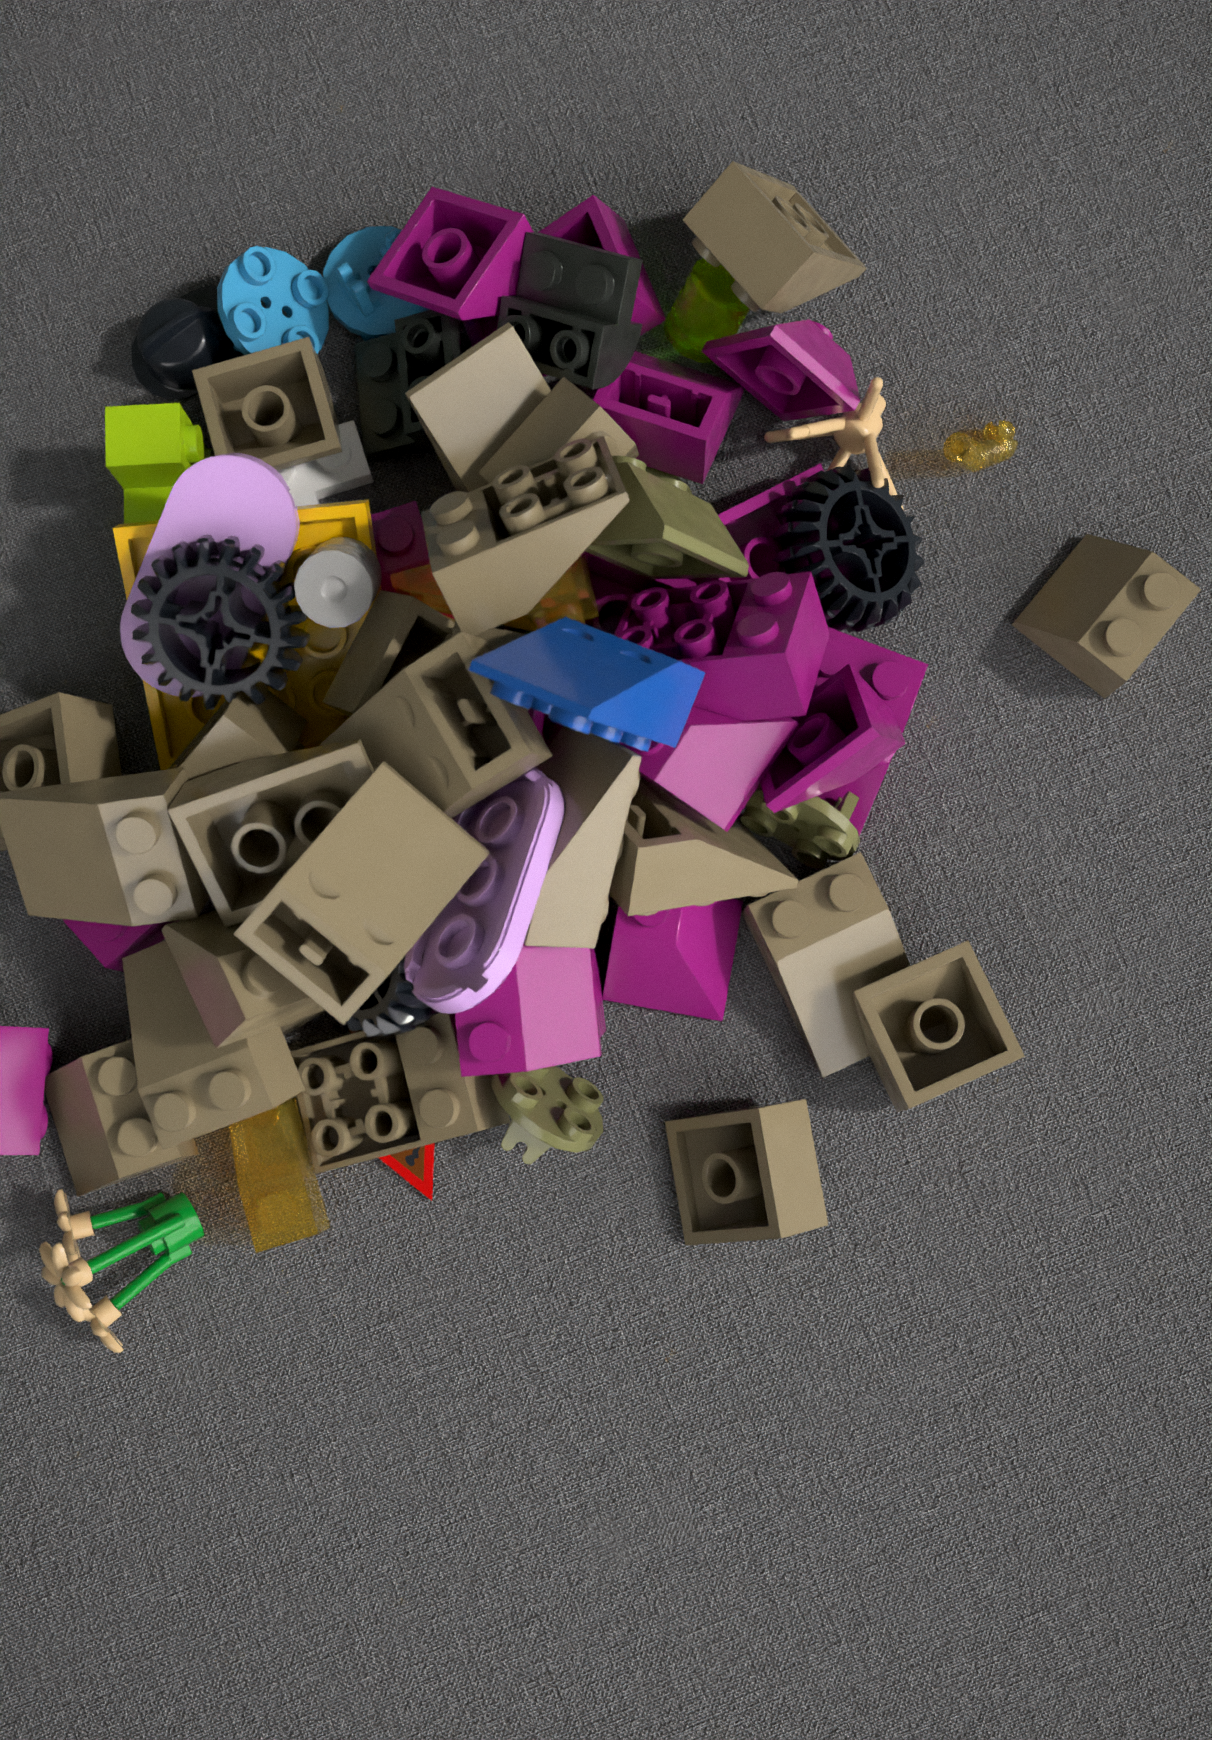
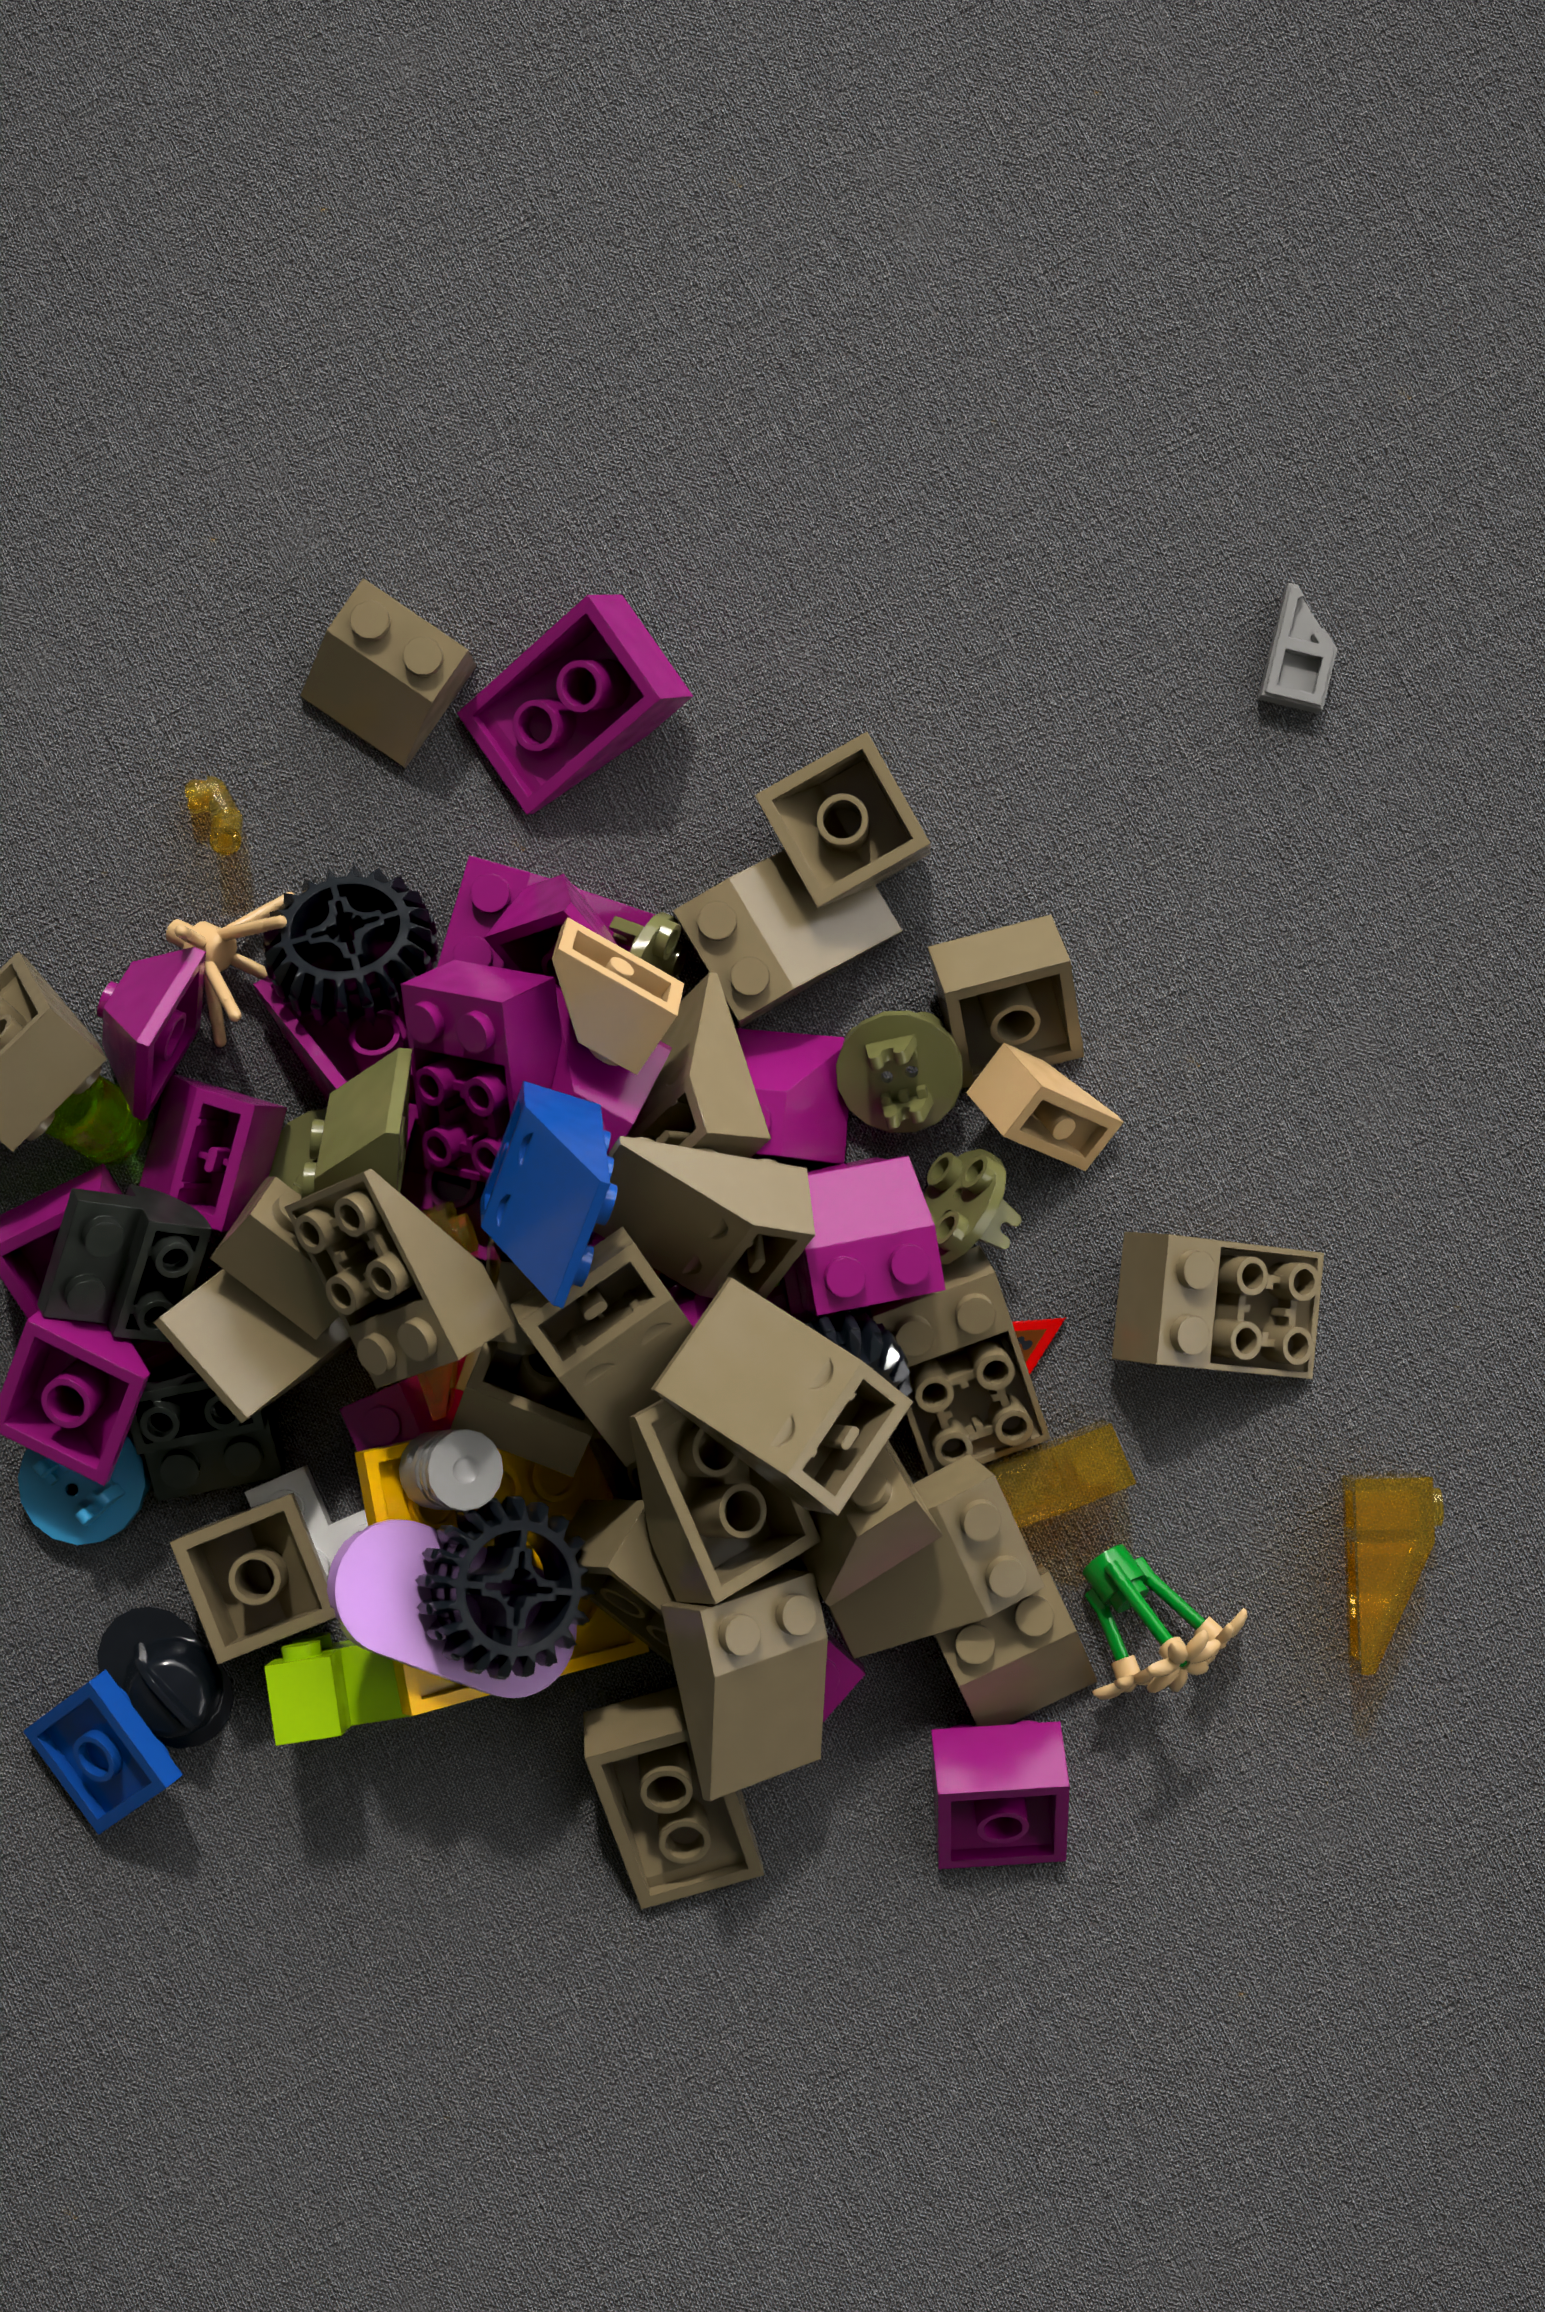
camera: 95 degrees left, 5 degrees up
(131, 274) = (103, 1752): none -> blue plate
(163, 1502) = (1386, 1548): none -> clear yellow slope
(280, 284) = (102, 1585): dark azure plate -> none
(425, 1354) = (1217, 1305): none -> dark tan slope
(486, 922) = (799, 1271): lavender tile -> none
(637, 1197) = (1042, 1108): none -> tan slope
(713, 1054) = (892, 1044): none -> olive plate
(783, 766) = (613, 997): none -> tan slope
(1068, 1505) = (1298, 657): none -> light grey tile
(1070, 784) = (574, 701): none -> magenta slope

